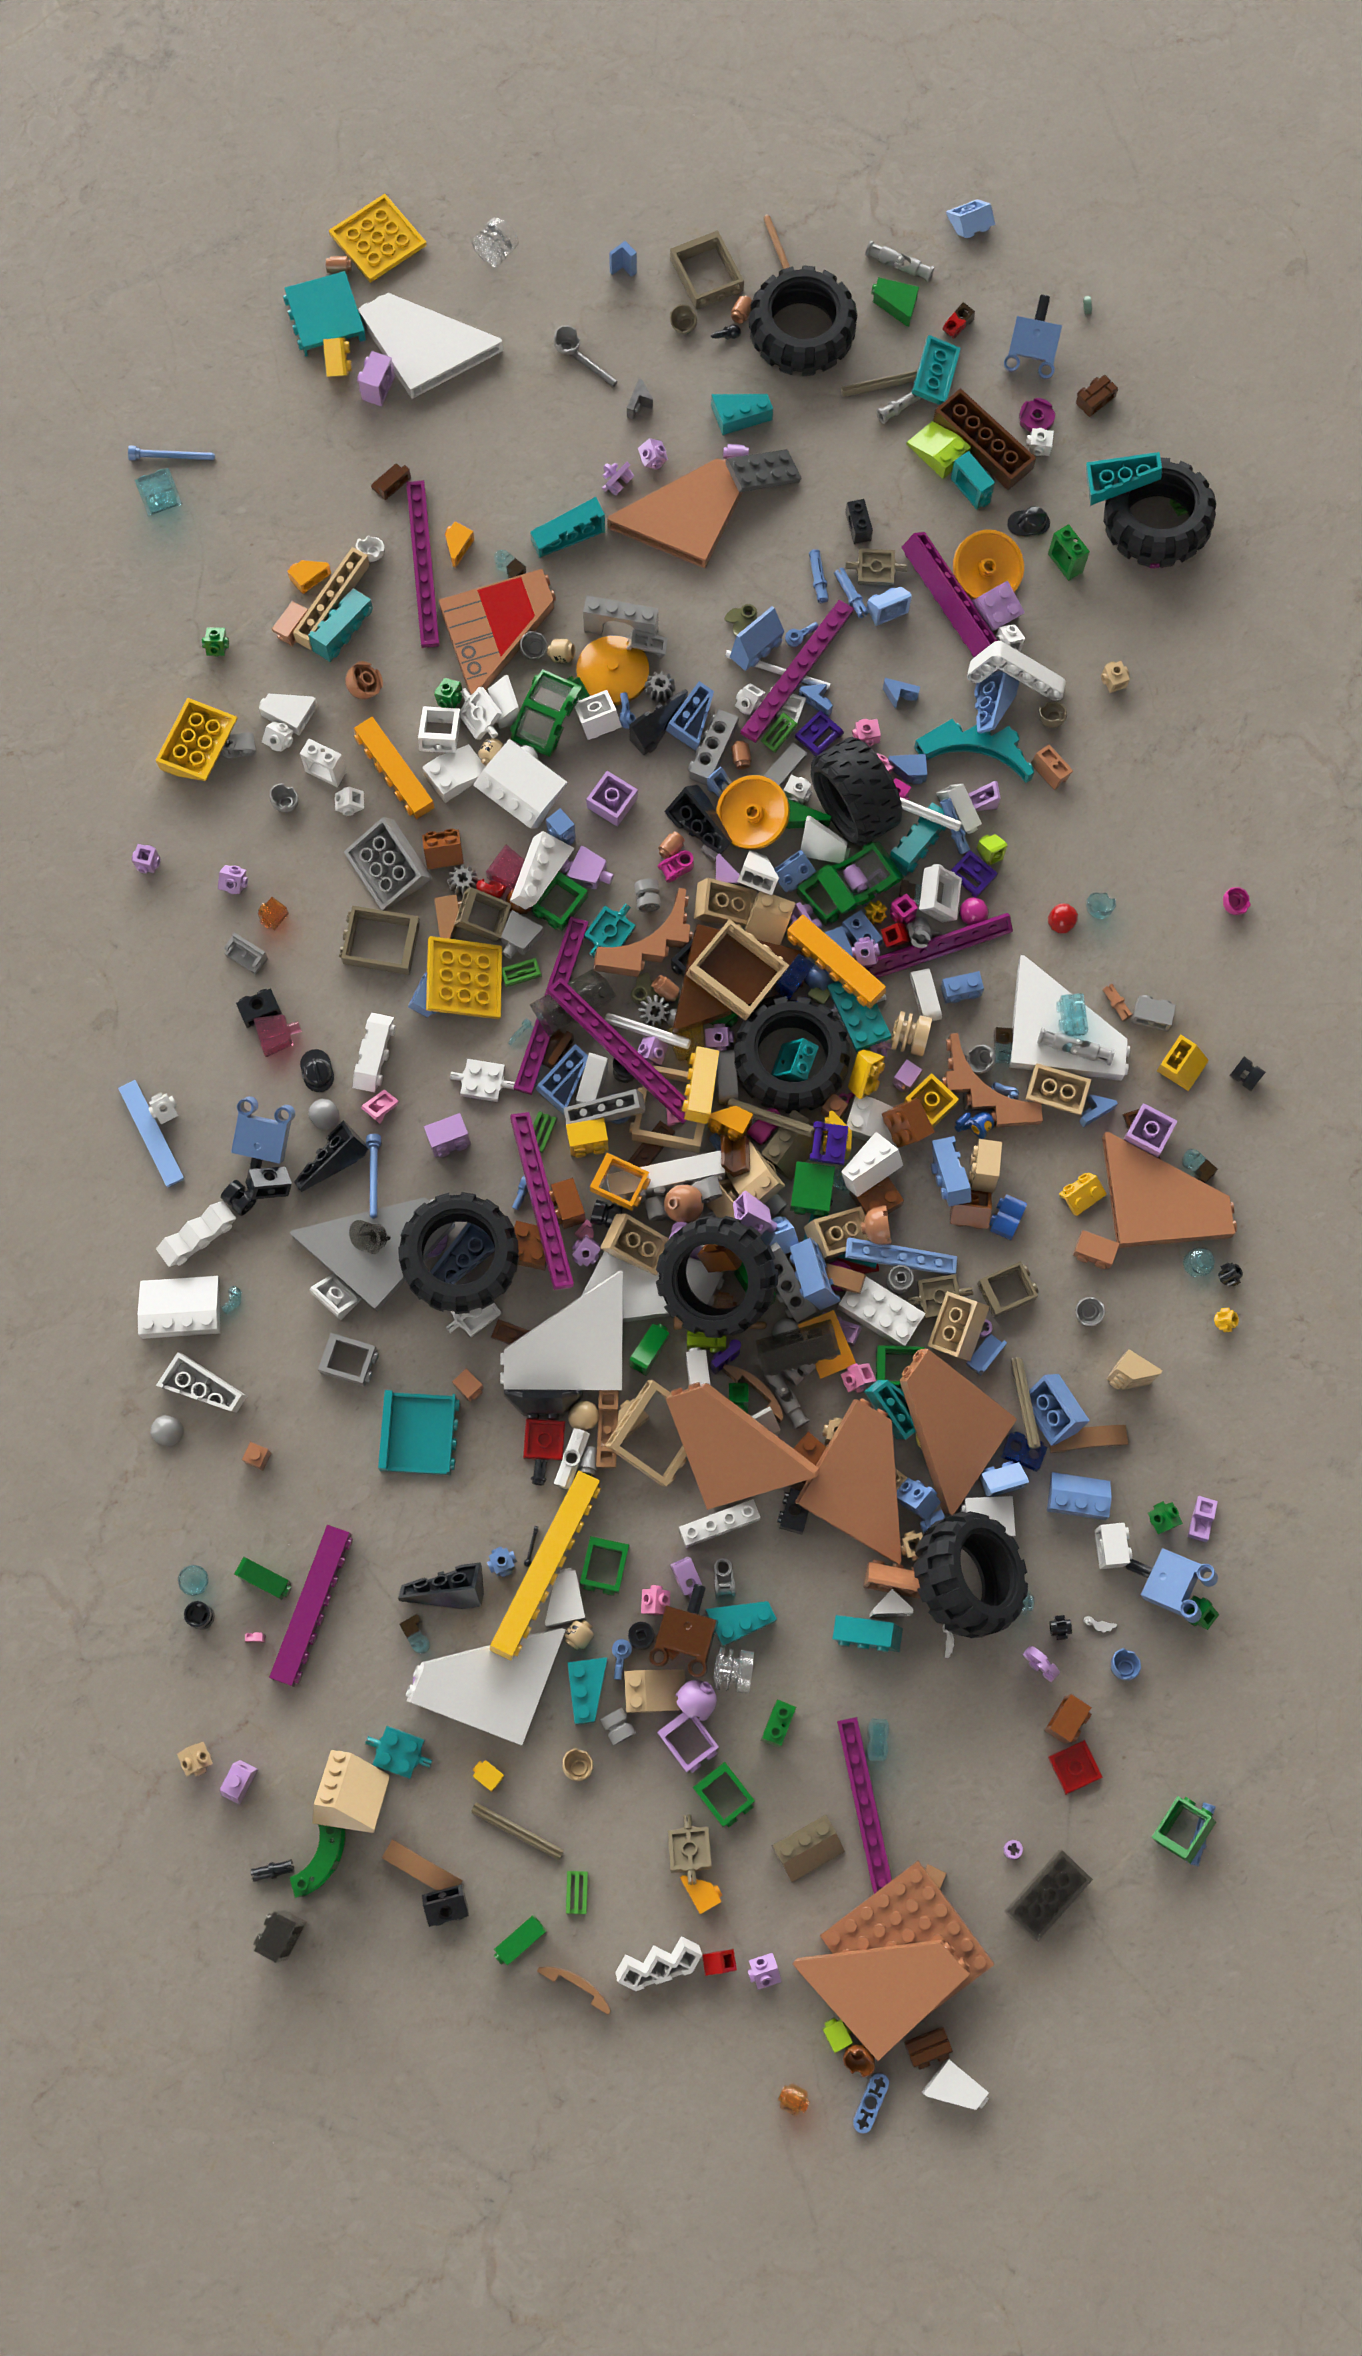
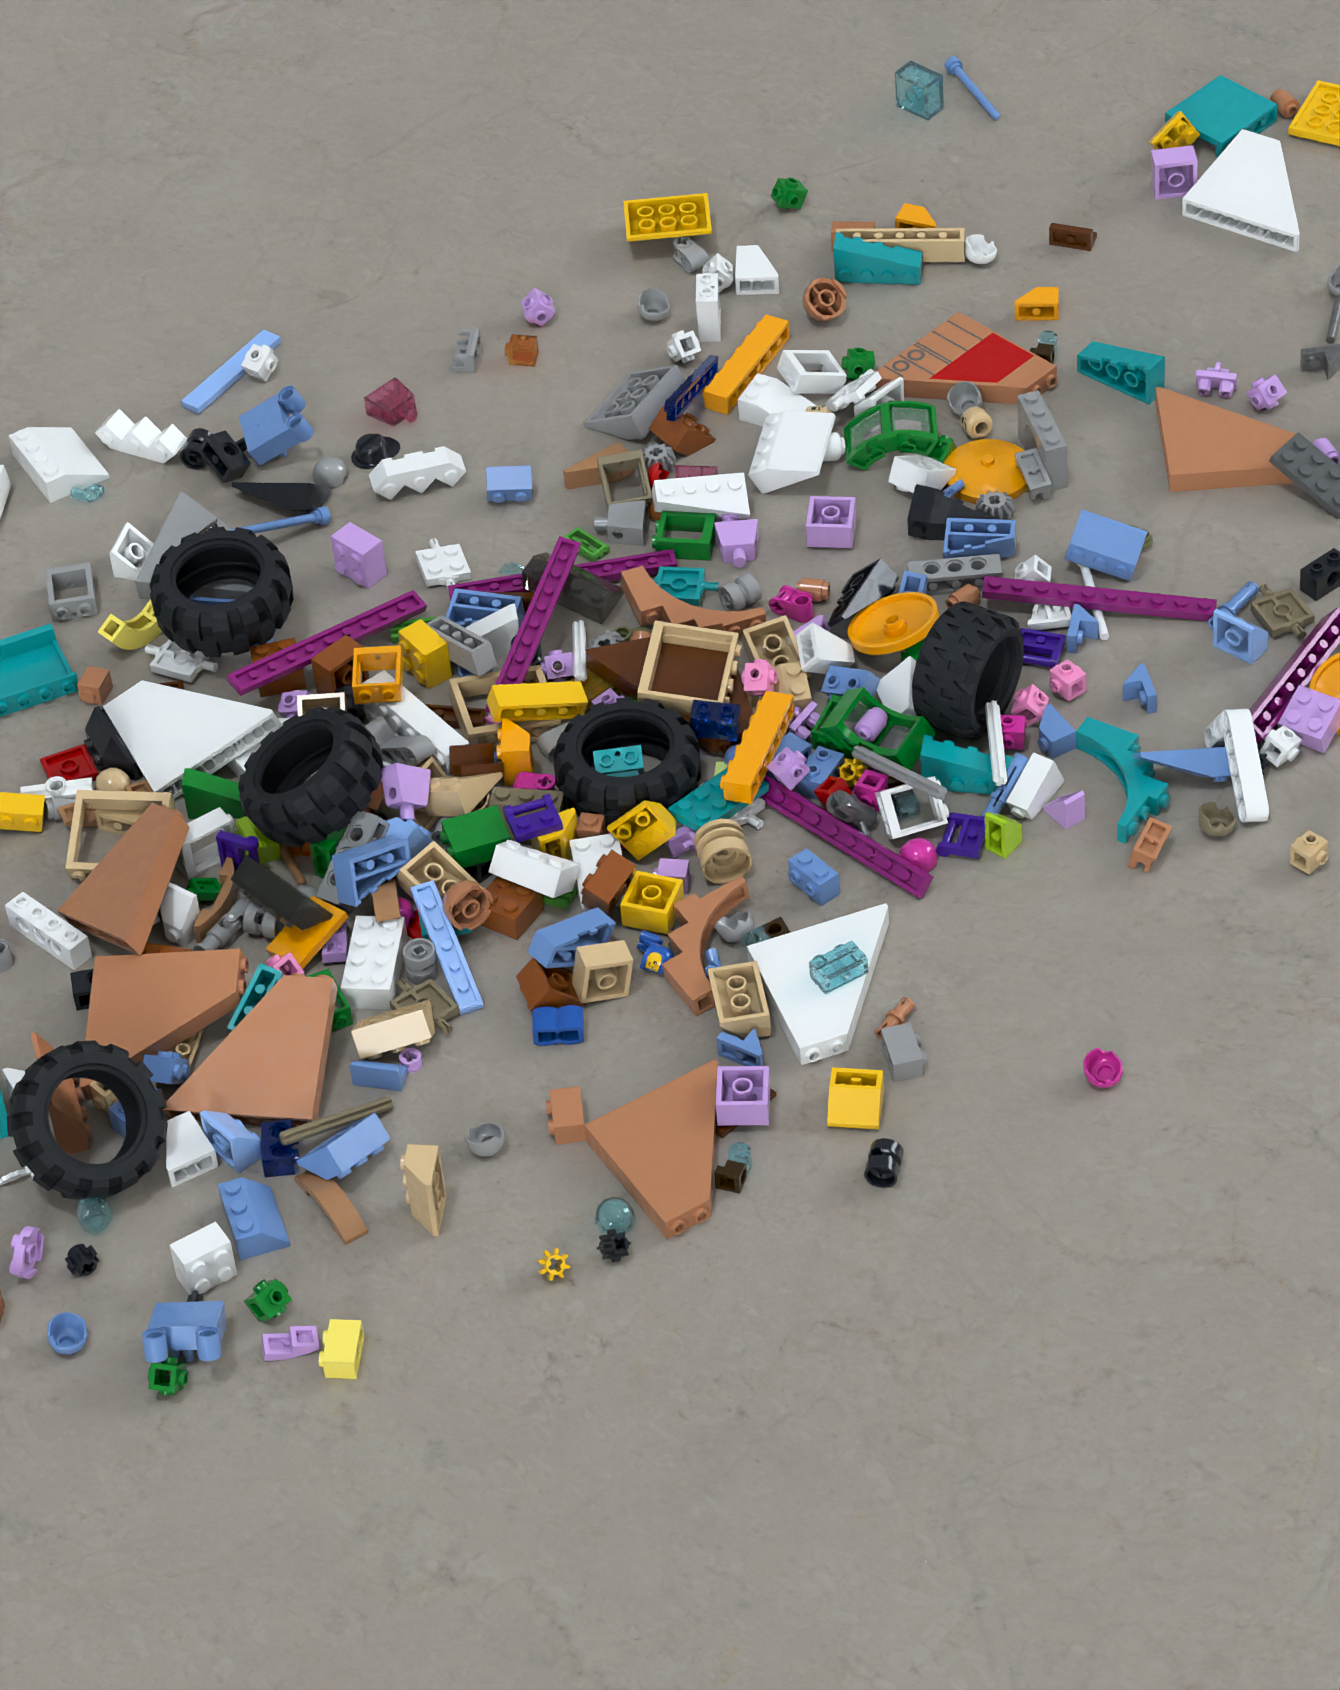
camera: 70 degrees right, 30 degrees down
(146, 858) = (517, 244): lavender brick -> none
(247, 1003) = (418, 380): black brick -> none
(380, 1105) = (358, 498): bright pink slope -> none
(381, 916) = (552, 453): dark tan window -> none
(417, 822) = (691, 388): none -> clear blue plate
(422, 564) = (998, 290): magenta plate -> none
(423, 1326) = (133, 632): none -> light yellow arch
(464, 977) = (542, 497): yellow plate -> none
(539, 1473) = (29, 777): black pin -> none
(561, 827) = (764, 496): medium blue brick -> none
(683, 1203) = (389, 732): nougat cylinder -> none
(765, 927) = (759, 677): none -> bright pink brick
(773, 1118) = (538, 785): dark tan axle -> none
(785, 735) = (1021, 613): bright green tile -> none
(795, 637) = (1144, 584): medium blue plate -> none
(819, 580) = (1224, 577): medium blue pin -> none
(923, 885) = (899, 772): none -> light grey axle
(925, 994) = (773, 858): white beam -> none
(990, 1298) = (453, 1043): dark tan window -> none
(1062, 918) = (967, 931): red hair -> none
(1079, 1047) = (801, 985): light grey piece -> none
(1083, 1193) = (629, 1079): yellow bracket -> none
(1099, 1626) = (107, 1303): white piece -> none
(1100, 905) = (1004, 952): clear light blue hair -> none
(1229, 1487) = (342, 1349): none -> light yellow brick

